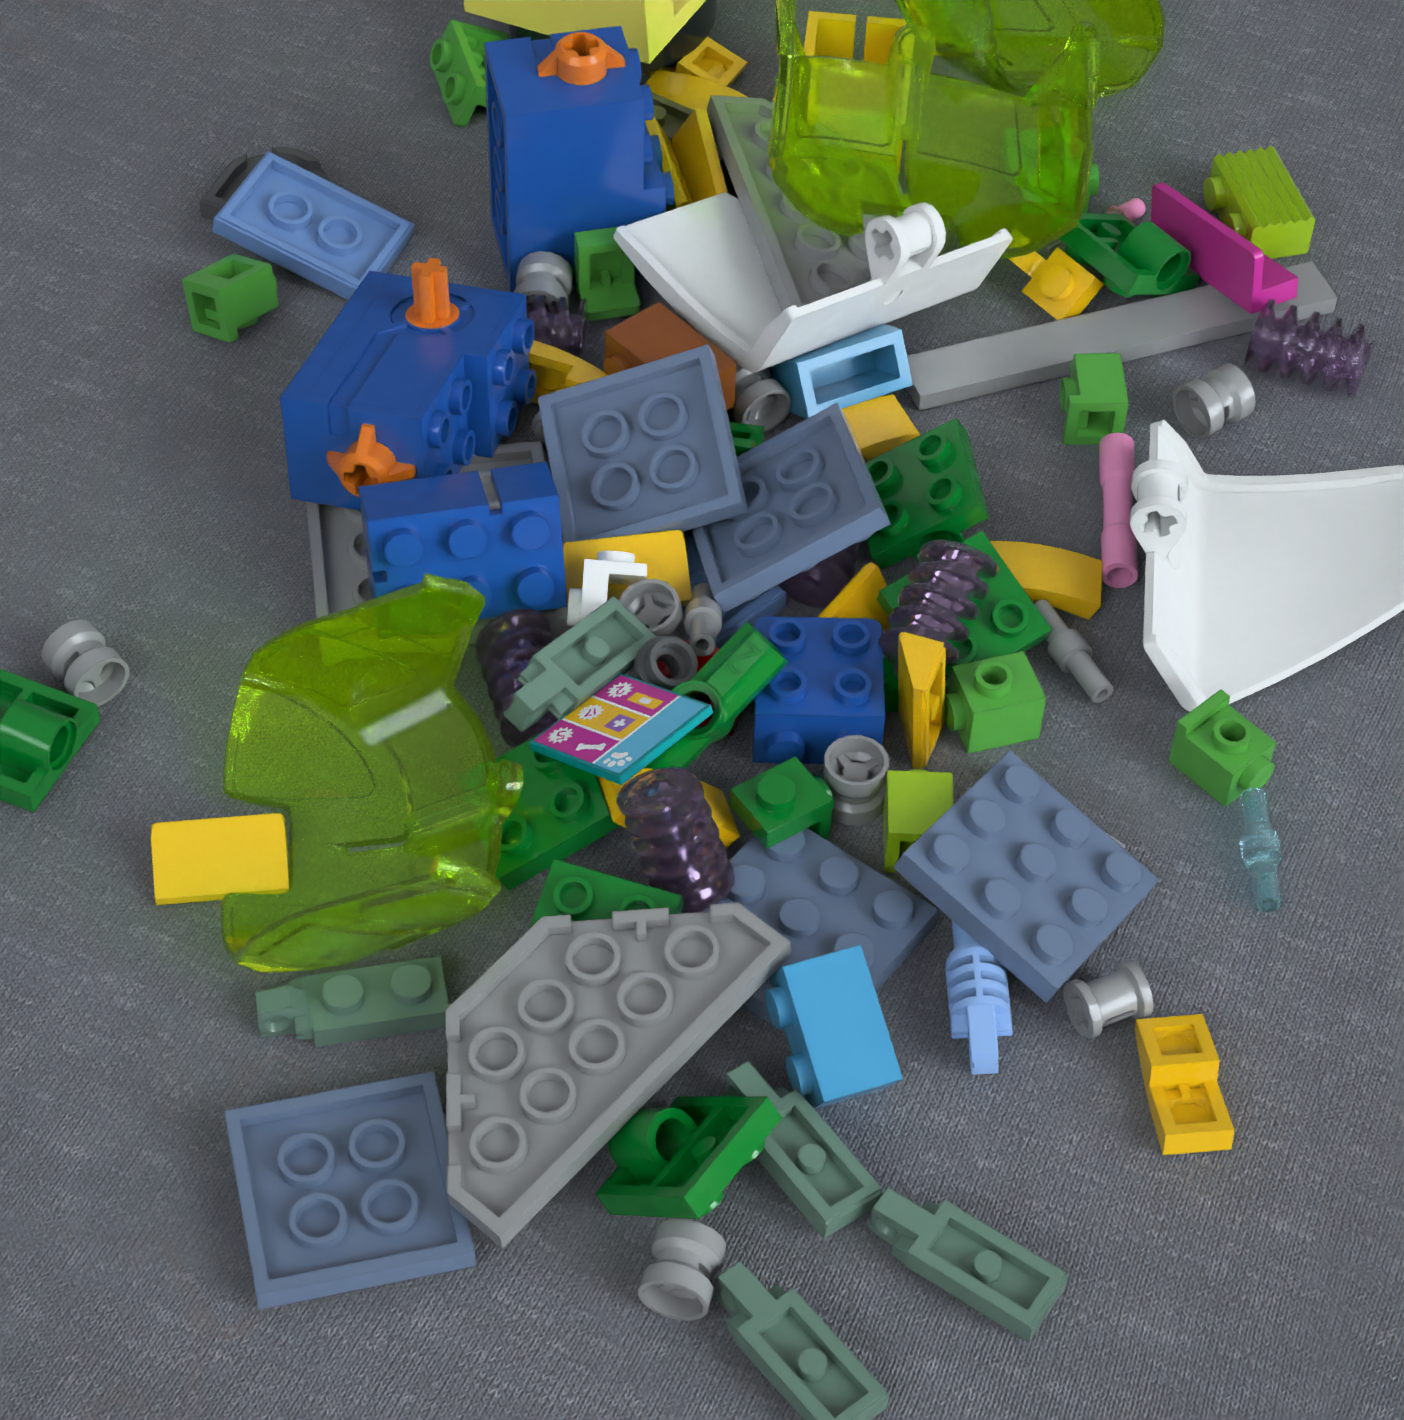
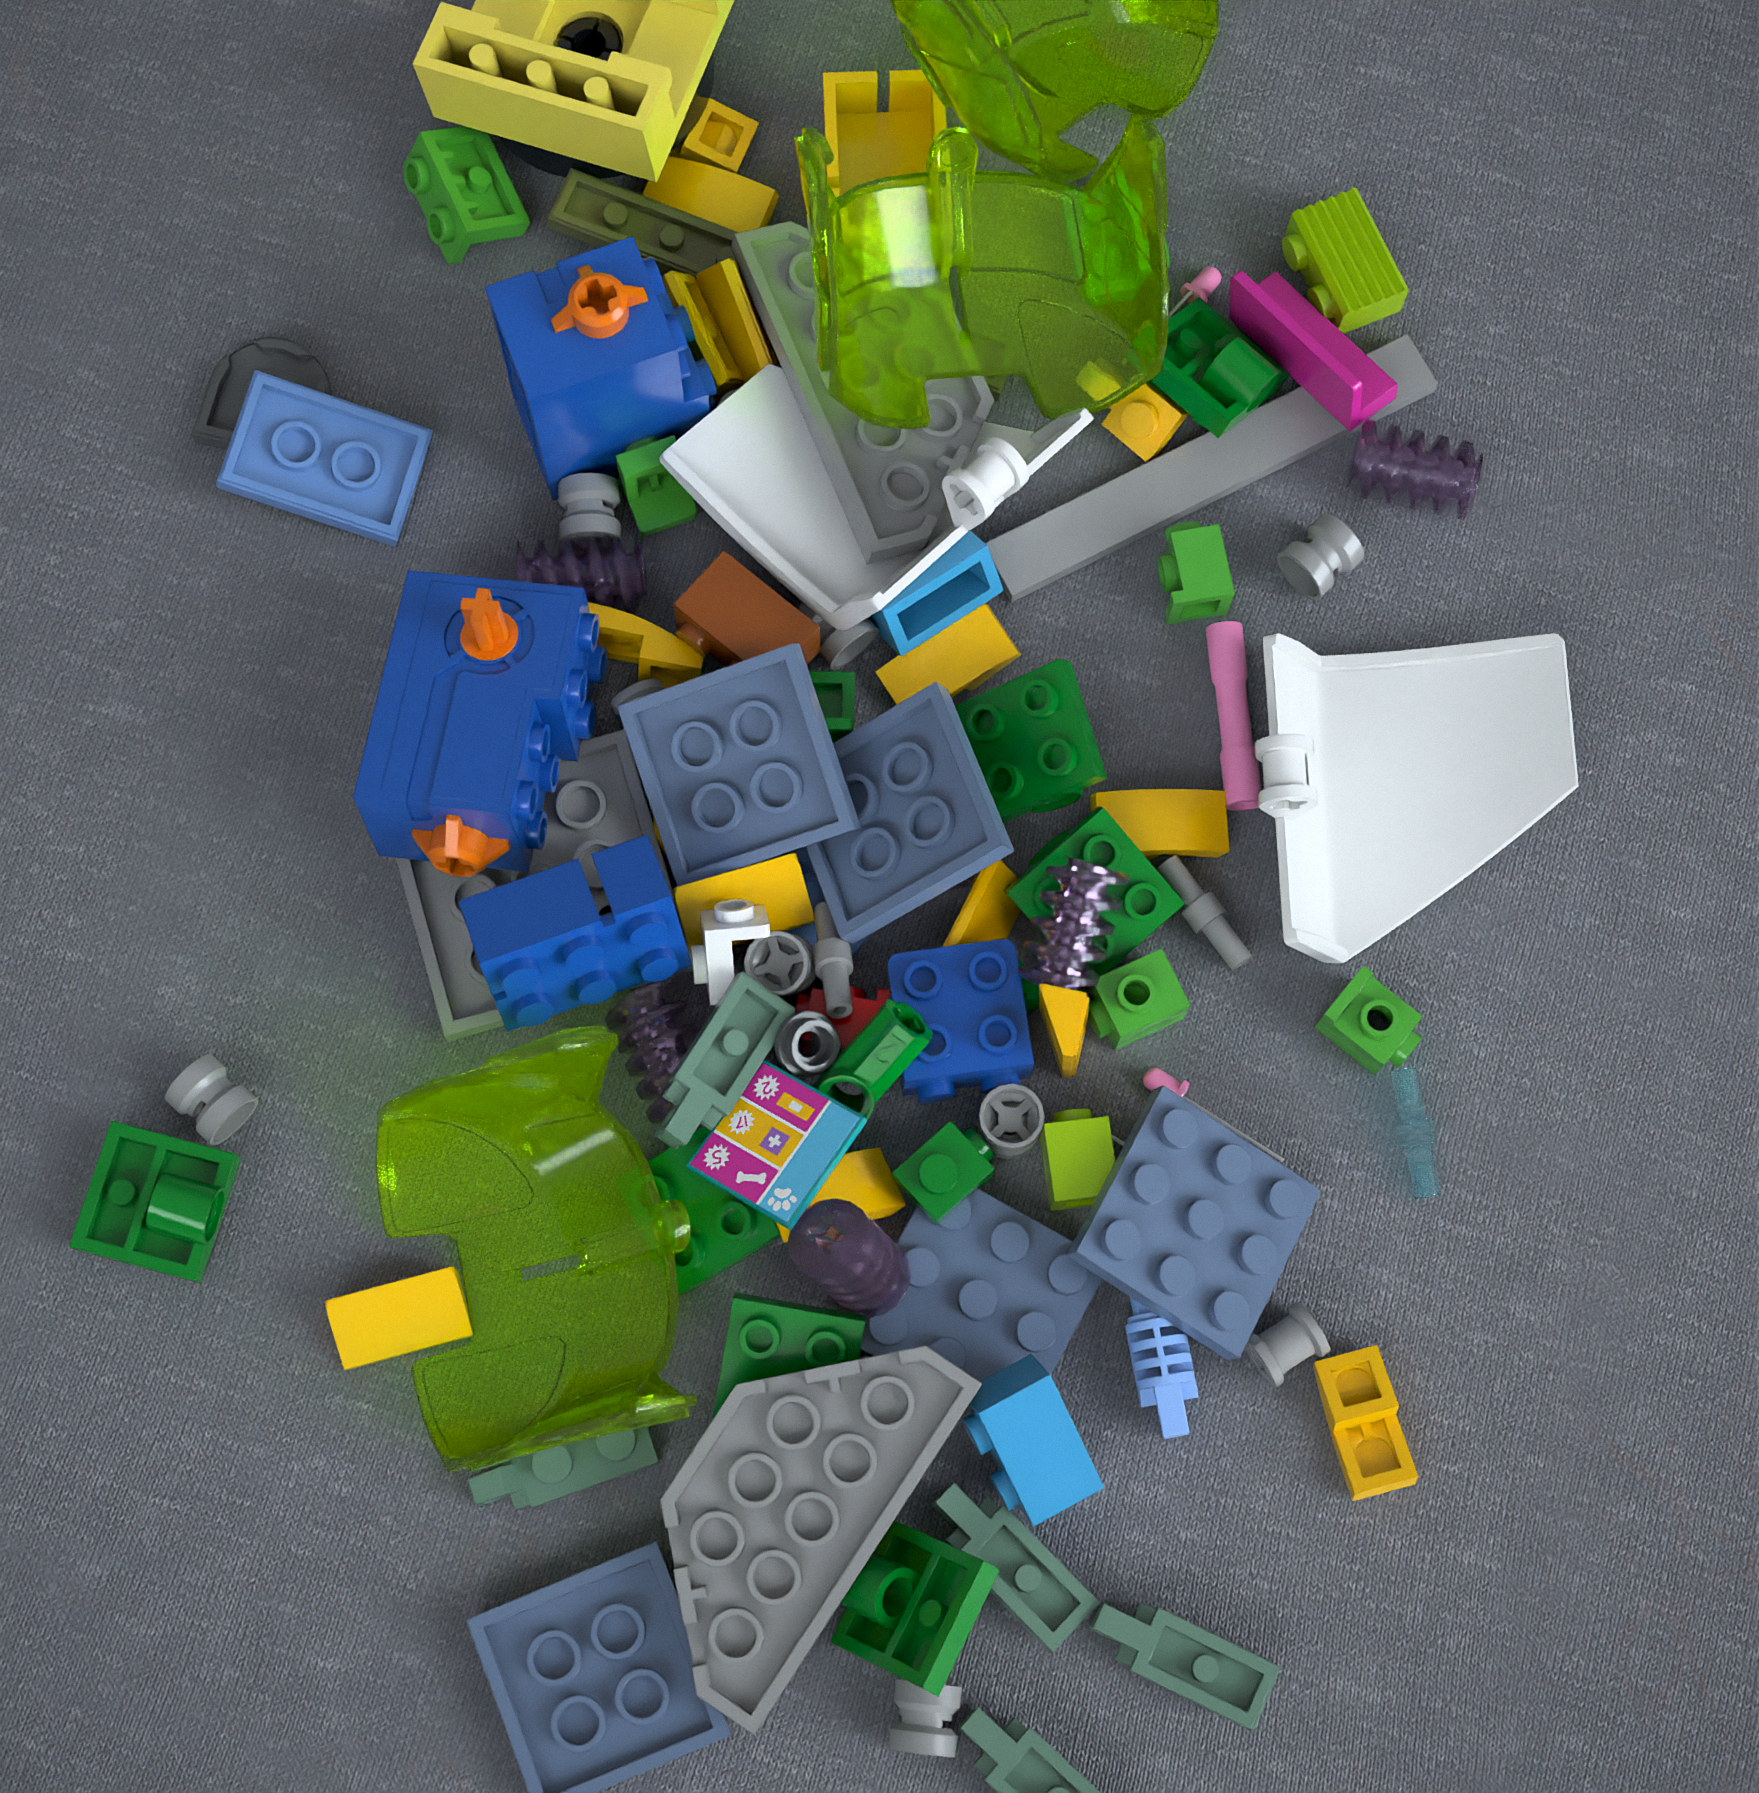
camera: 10 degrees left, 25 degrees up
(229, 296) = (255, 574): bright green brick -> none

